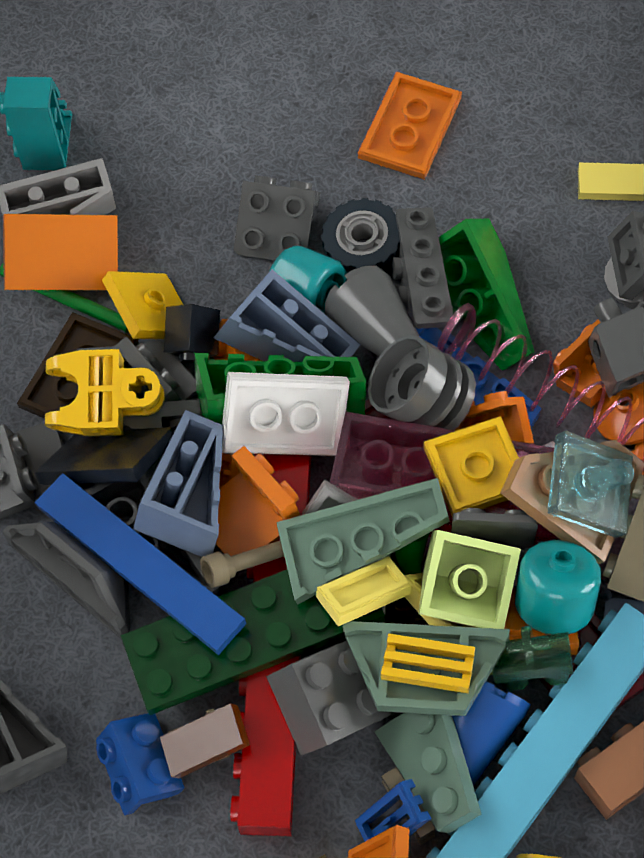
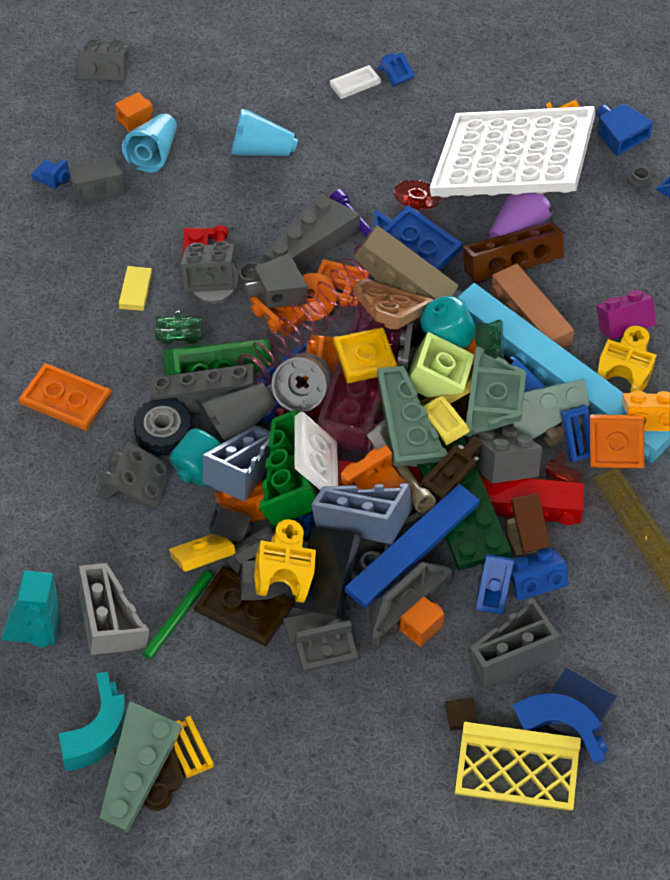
camera: 90 degrees left, 10 degrees down
(46, 599) = (422, 621): none -> orange brick
(59, 251) = (152, 602): orange tile -> none
(105, 695) = (494, 584): none -> blue slope
(270, 607) = (452, 469): none -> dark brown hinge
(312, 806) = (558, 472): none -> clear red bracket
(433, 648) = (502, 367): yellow tile -> none
(537, 238) = (178, 328): none -> clear green hips
(590, 484) = (390, 290): clear light blue tile -> none

